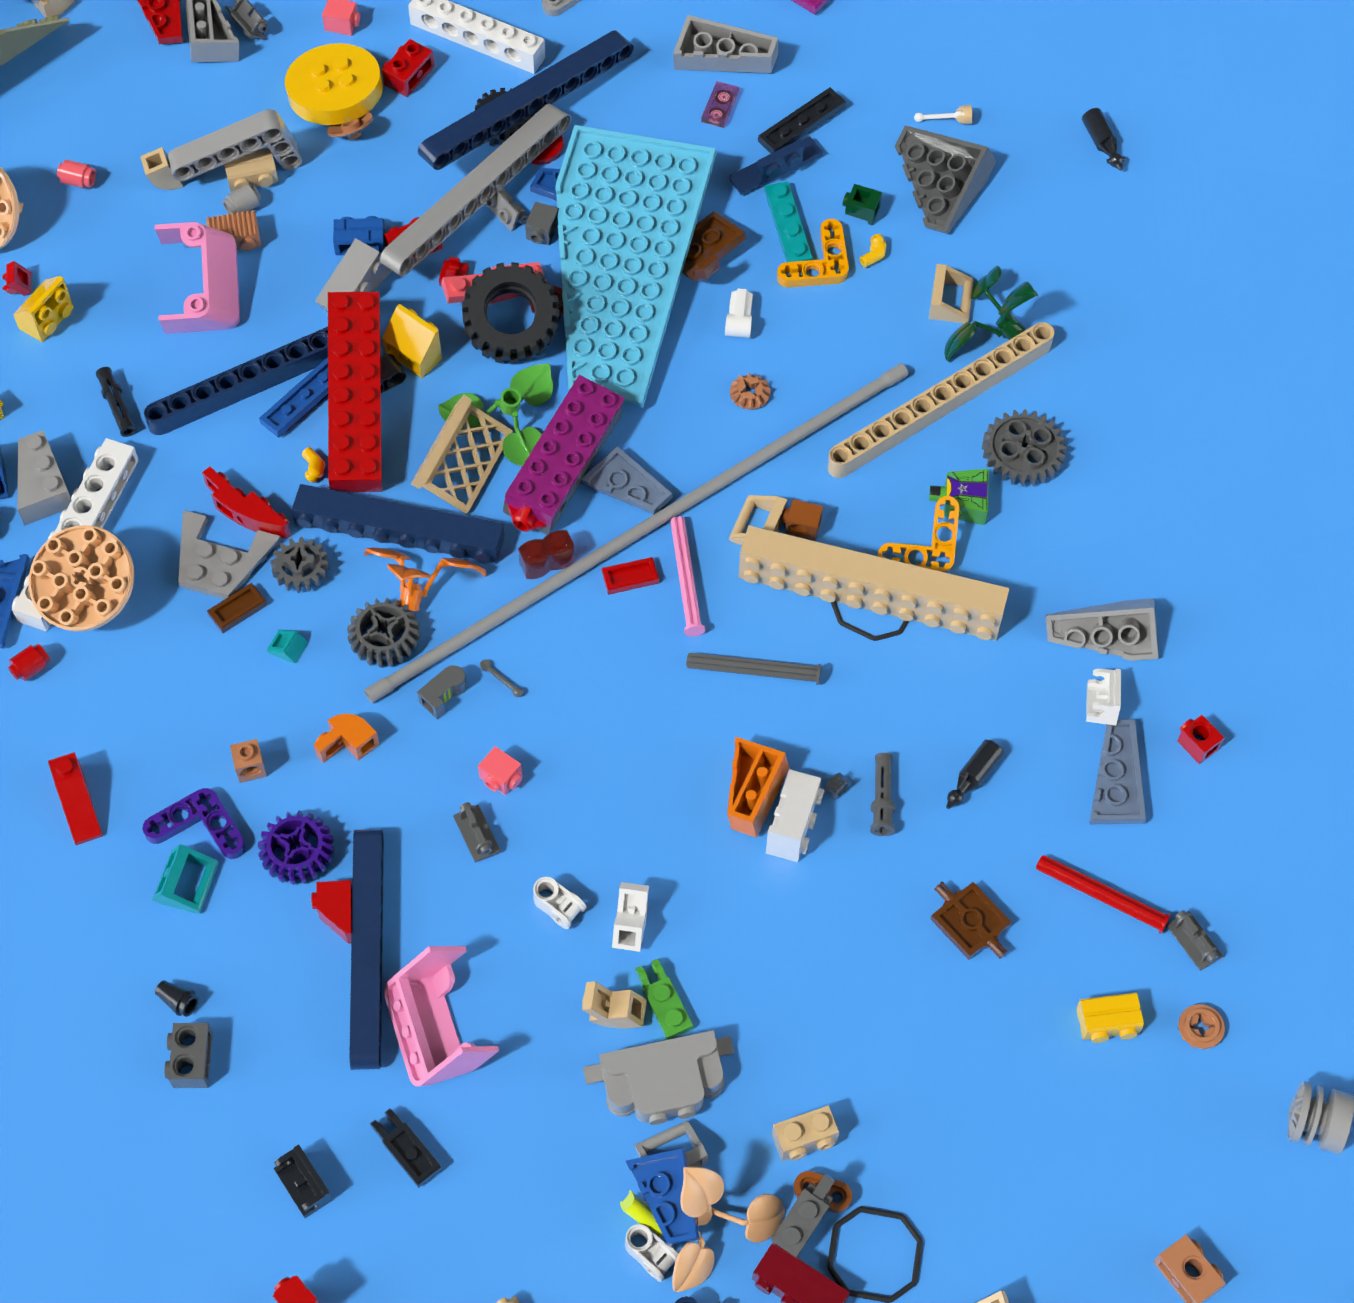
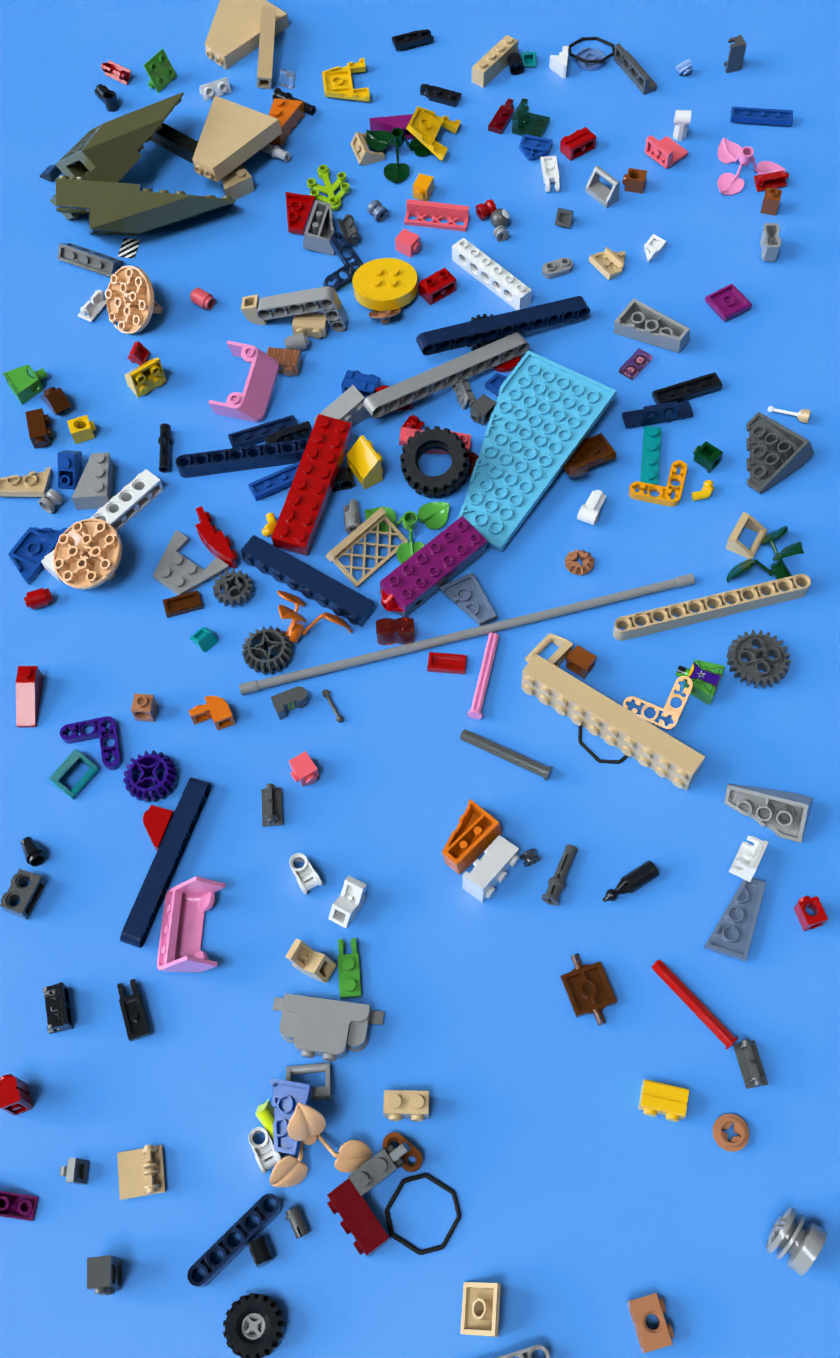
camera: 25 degrees right, 0 degrees up
(247, 340) = (258, 433): none -> dark blue tile
(270, 73) = (348, 267): none -> dark blue beam
(294, 328) = (295, 432): none -> black hinge
(423, 420) = (351, 516): none -> light grey hinge

